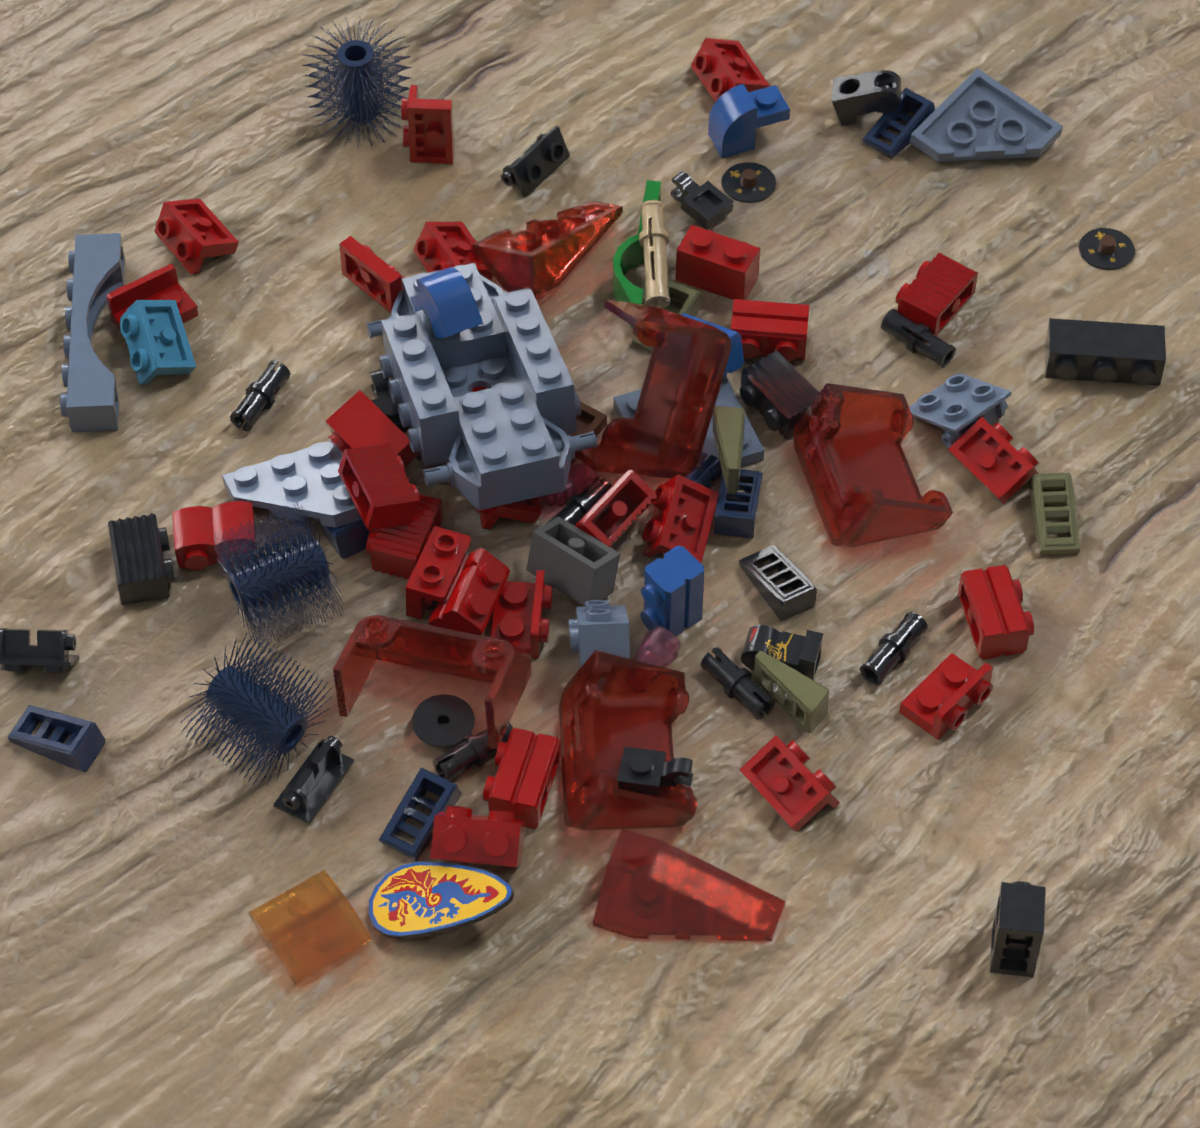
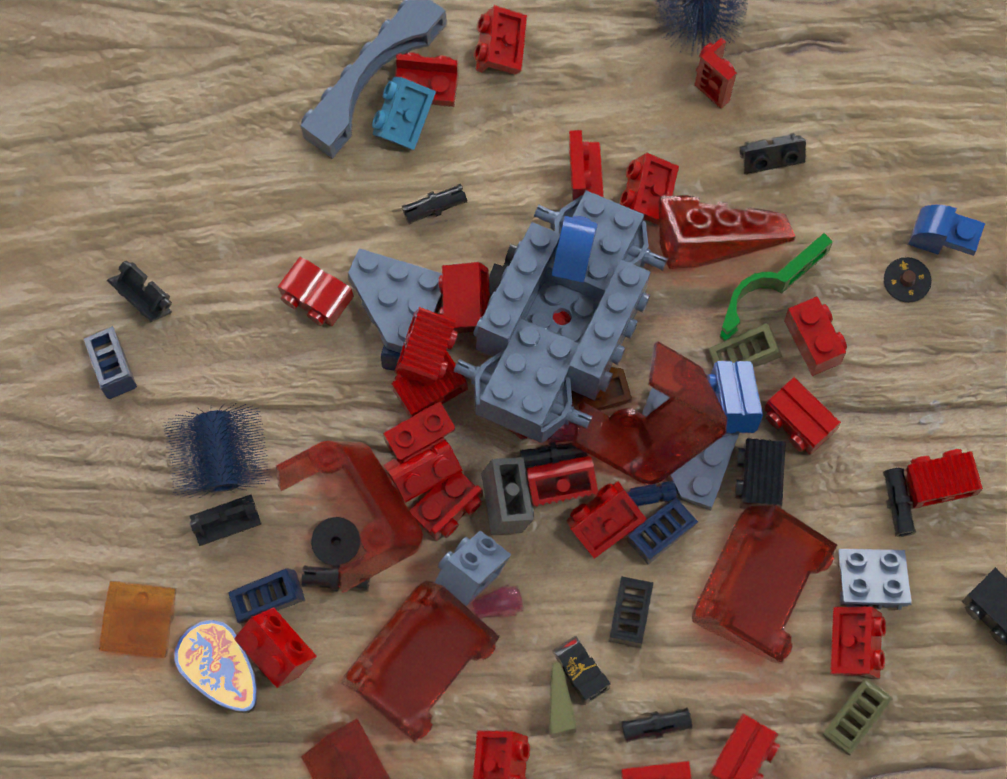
camera: 45 degrees right, 20 degrees up
(139, 559) = (257, 273): black brick -> none
(279, 575) = (311, 364): dark blue piece -> none
(524, 775) = (343, 624): red brick -> none
(647, 770) = (421, 683): black plate -> none
(654, 240) = (764, 309): tan pin -> none
(673, 591) = (542, 573): blue brick -> none
(702, 203) = (854, 276): black plate -> none
(725, 65) = (975, 178): red bracket -> none
(729, 439) = (686, 488): olive slope -> none
(738, 683) = (535, 666): black pin -> none

